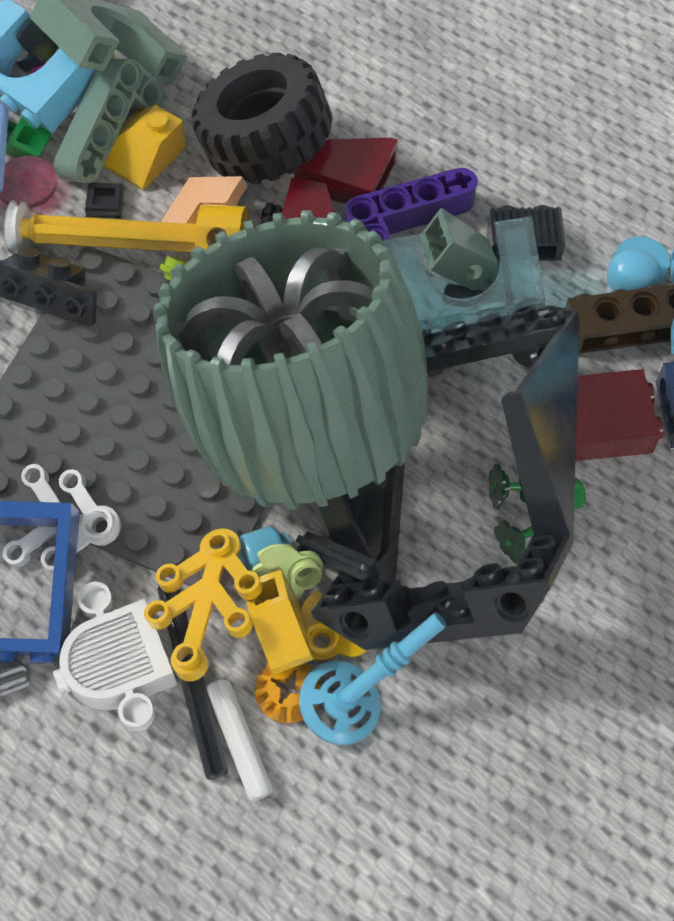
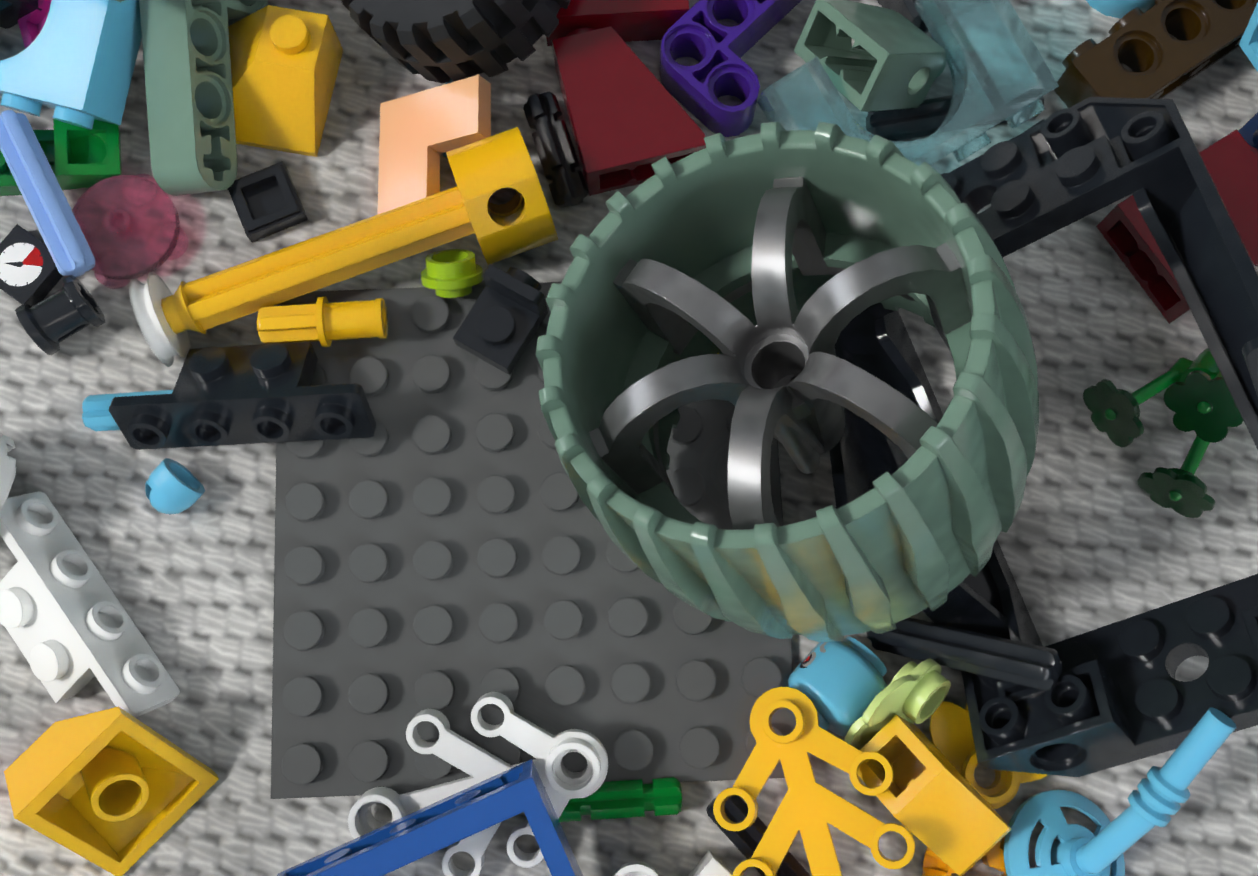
camera: 25 degrees left, 15 degrees up
(99, 262) = (323, 321): none -> yellow axle
(116, 562) = (627, 800): none -> green axle

